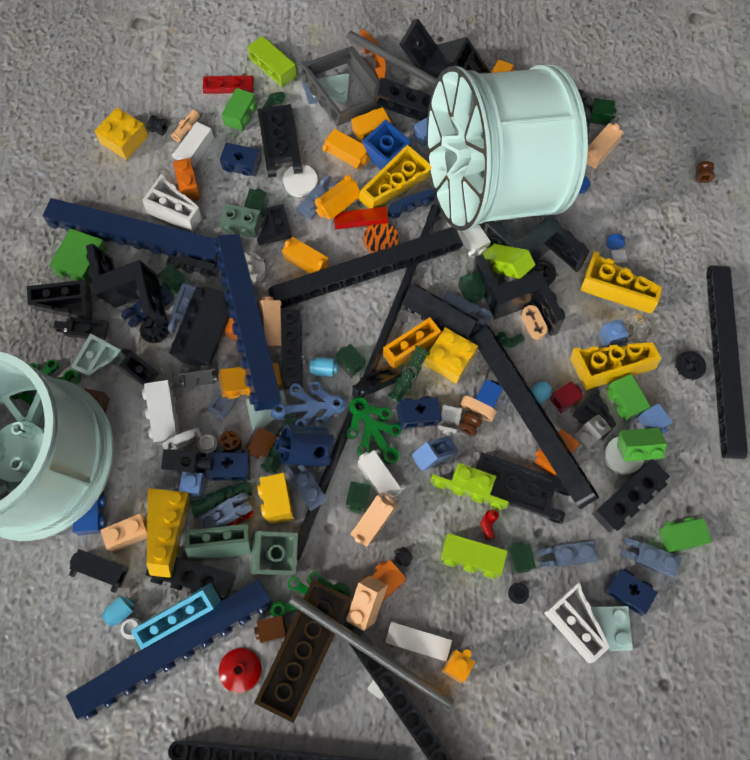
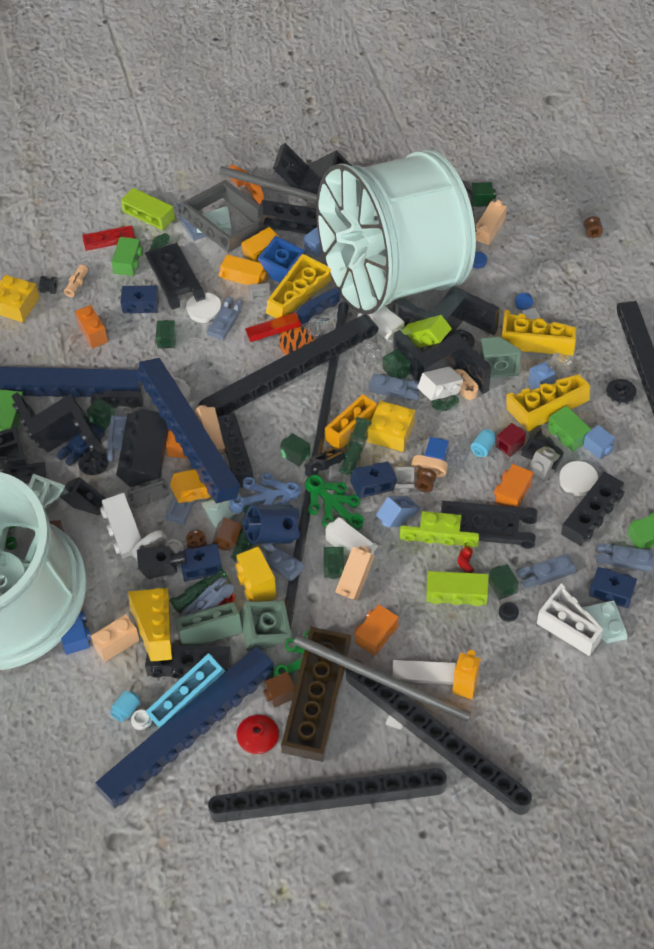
camera: 10 degrees left, 15 degrees down
(98, 569) = (95, 674): black brick -> none
(171, 206) = (83, 351): white wedge -> none
(193, 484) = (171, 580): medium blue brick -> none
(194, 143) = (90, 292): white brick -> none
(240, 220) = (155, 348): sand green brick -> none
(274, 226) = (189, 350): black wing -> none
(304, 256) = (225, 370): light orange brick -> none
(323, 366) = (270, 460): medium azure brick -> none
(337, 198) = (245, 313): light orange brick -> none
(359, 175) = (259, 292): none -> light grey bracket
(366, 603) = (366, 639): light nougat brick -> none
(403, 556) = (391, 602): black plate -> none
(407, 228) = (320, 326): none -> clear brick
(440, 311) = (354, 386): black brick -> none
(510, 320) = (440, 383): none -> white brick
(535, 418) = (484, 456): black beam -> none
(577, 302) = (501, 356): none -> sand green slope
(641, 444) = (590, 460): bright green brick -> none

